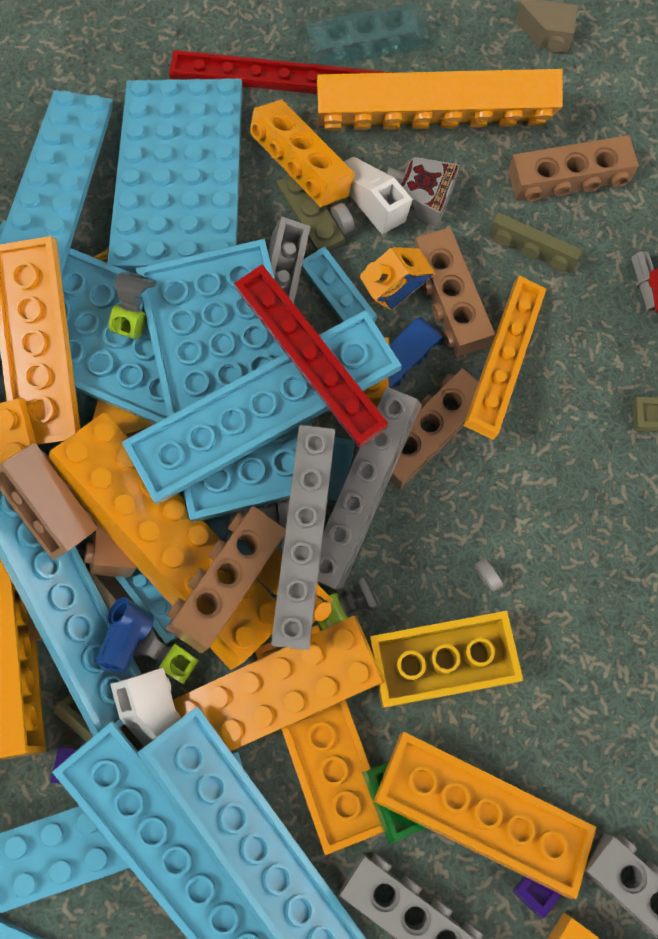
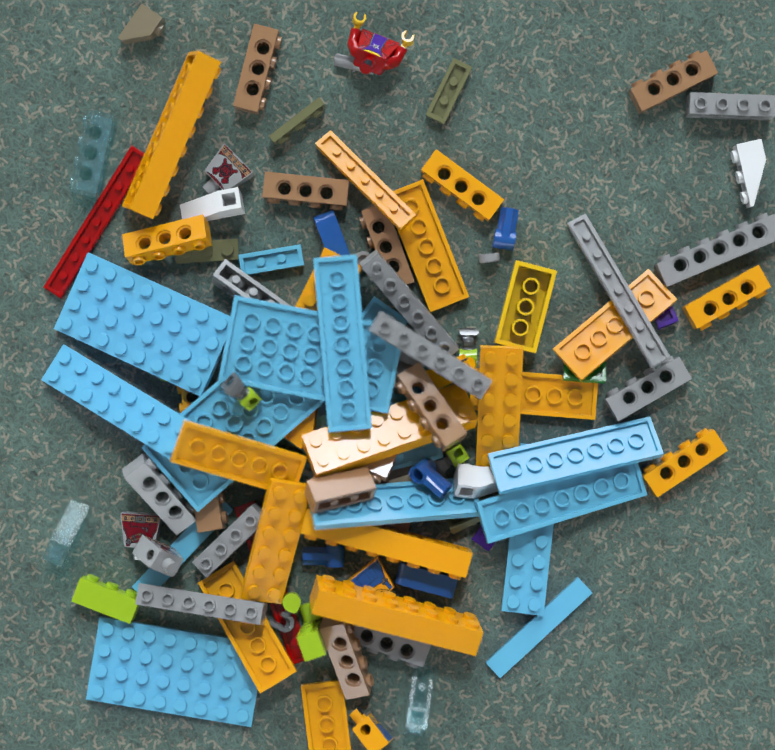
camera: 65 degrees left, 15 degrees up
(311, 356) = (328, 304): red plate -> none
(343, 218) = (223, 234): light grey tile -> none
(393, 279) = (284, 227): light orange torso -> none
(455, 488) = (430, 250): none -> light orange plate
(532, 582) = (505, 233): none -> blue piece
(535, 802) = (618, 291): none -> light grey tile
(582, 444) = (457, 174): none -> light orange brick

